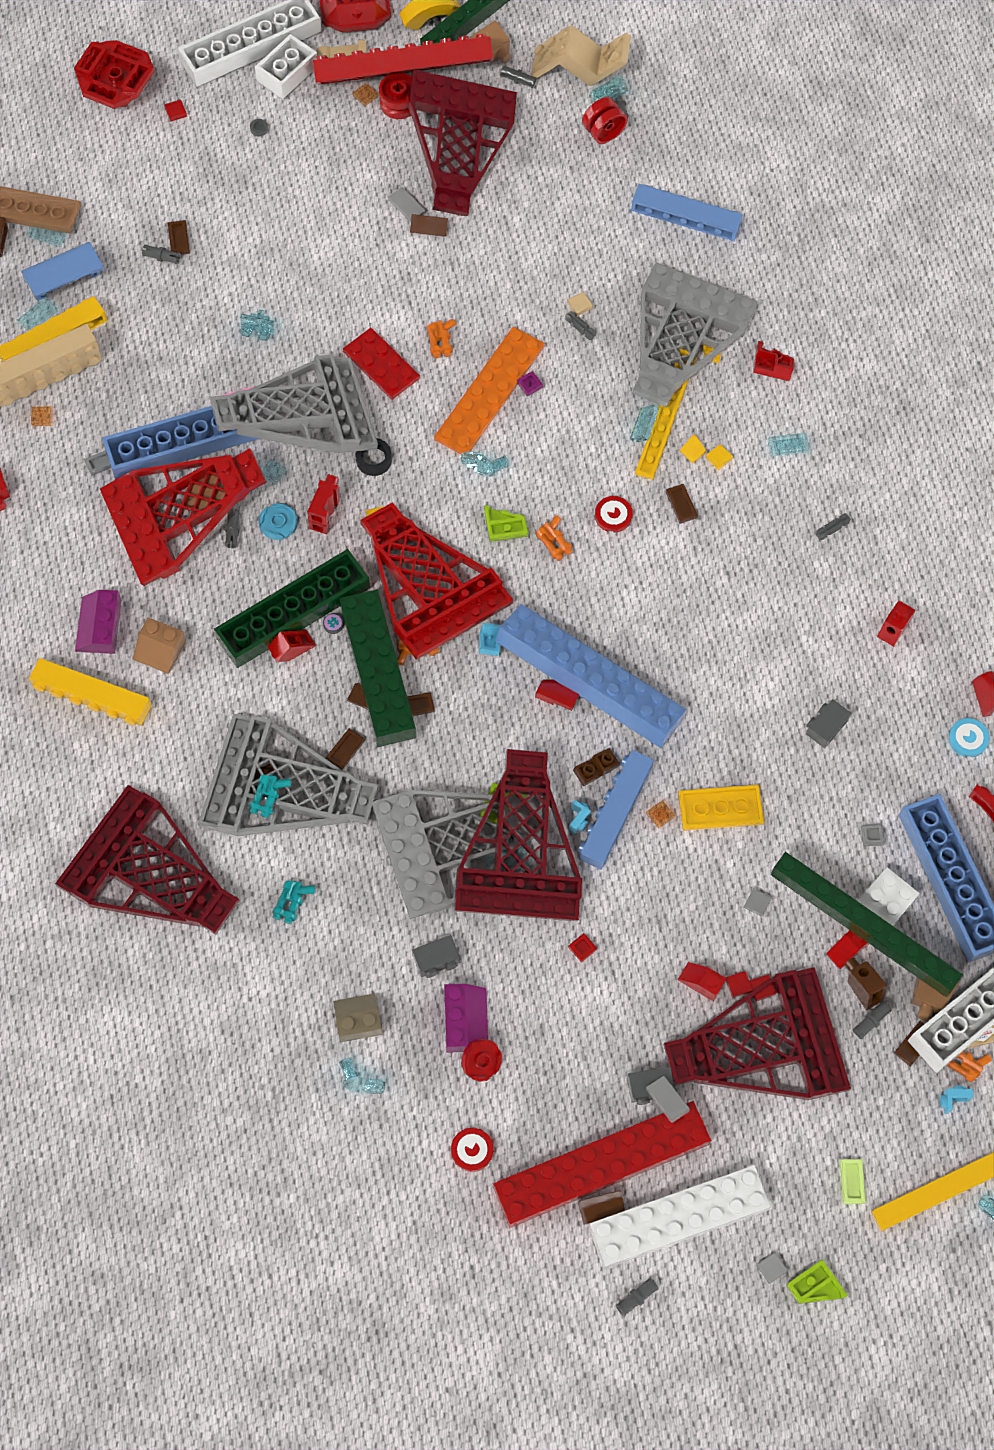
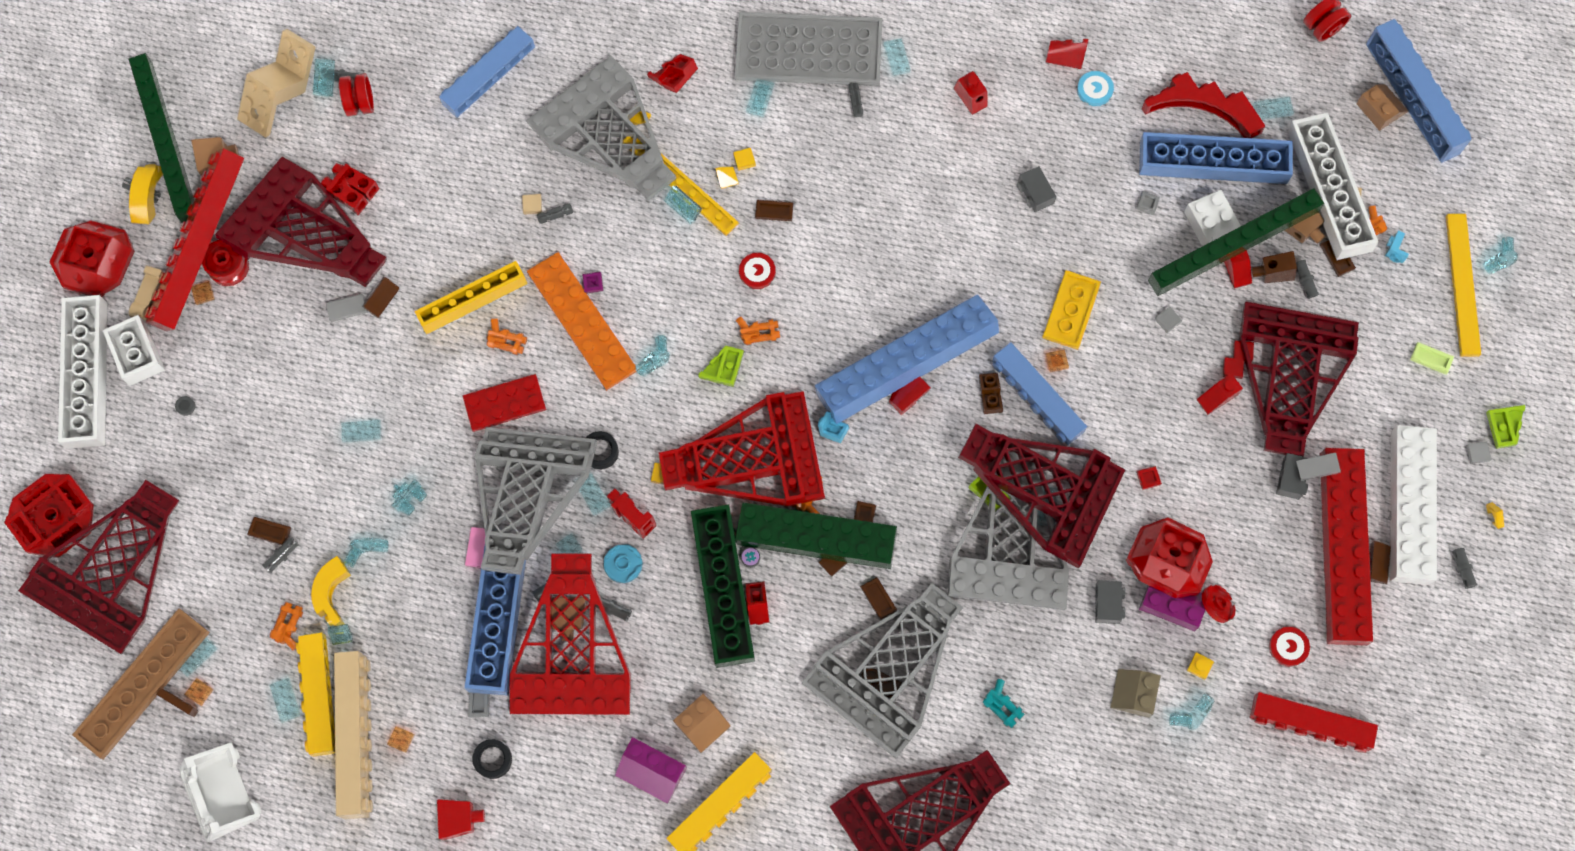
camera: 60 degrees left, 5 degrees up
(17, 249) = (199, 692): none -> clear orange tile
(50, 125) = (85, 606): none -> dark red wing
(52, 479) = (476, 758): none -> black tyre
(62, 270) = (252, 655): medium blue piece -> none
(95, 286) = (282, 631): none -> orange piece
(111, 328) = (340, 634): none -> clear light blue tile
(145, 298) = (323, 587): none -> yellow arch
(175, 110) = (121, 476): red tile -> none
(197, 310) = (364, 545): none -> clear light blue arm
(268, 786) = (894, 678): teal piece -> none
(300, 265) = (361, 431): none -> clear light blue tile
(333, 465) = (594, 496): none -> clear light blue tile
(404, 1203) = (1313, 721): none -> red brick
(412, 1070) = (1200, 665): none -> yellow plate
(463, 292) = (471, 297): none -> yellow brick
(493, 1011) = (1156, 567): none -> red piece
(517, 76) = (261, 148): dark grey pin -> none
(517, 150) = (350, 187): none -> red hips
(580, 821) = (1037, 428): medium azure bracket -> none
(710, 1309) = (1497, 514): none -> yellow tile
(862, 464) = (808, 49): none -> light grey plate
(898, 545) = (897, 57): none -> clear light blue tile

